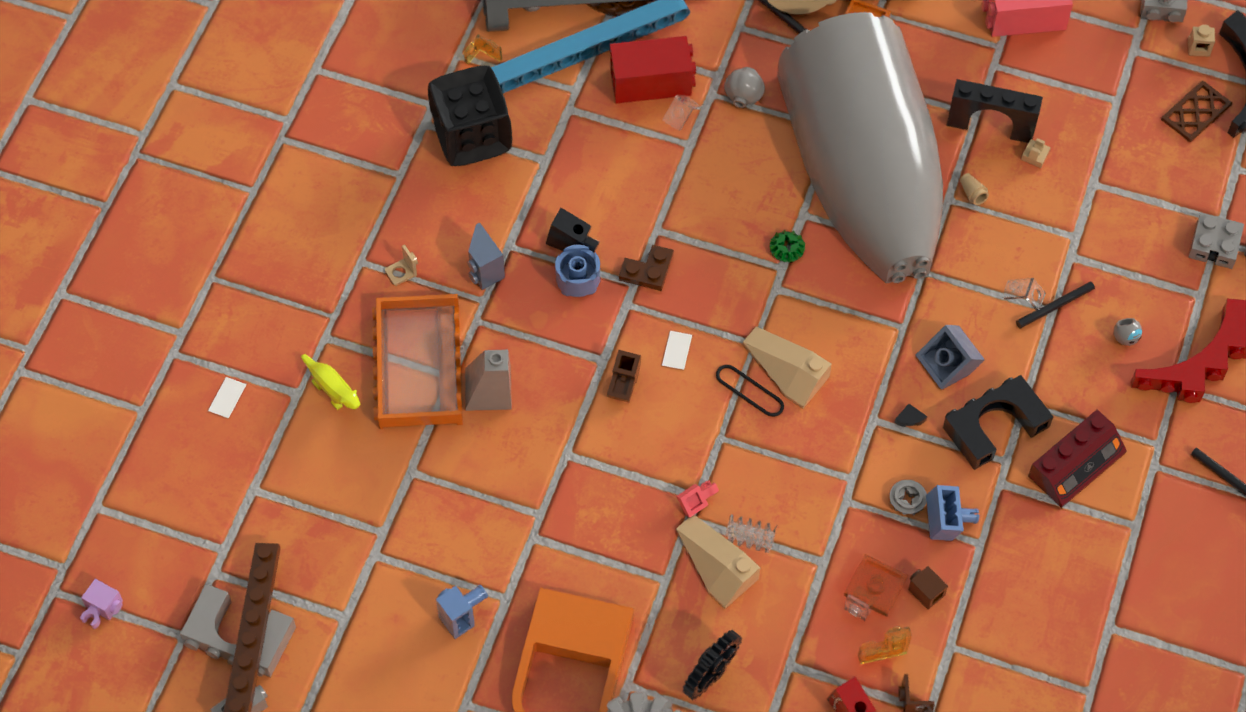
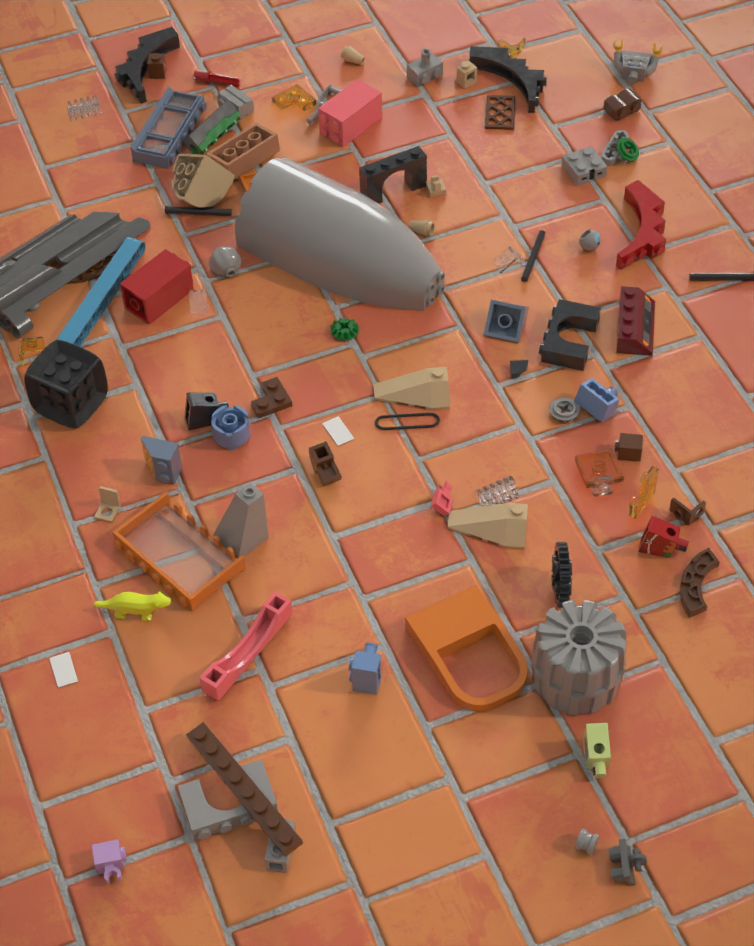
camera: 40 degrees left, 10 degrees down
(345, 511) = (226, 671): none -> coral arch

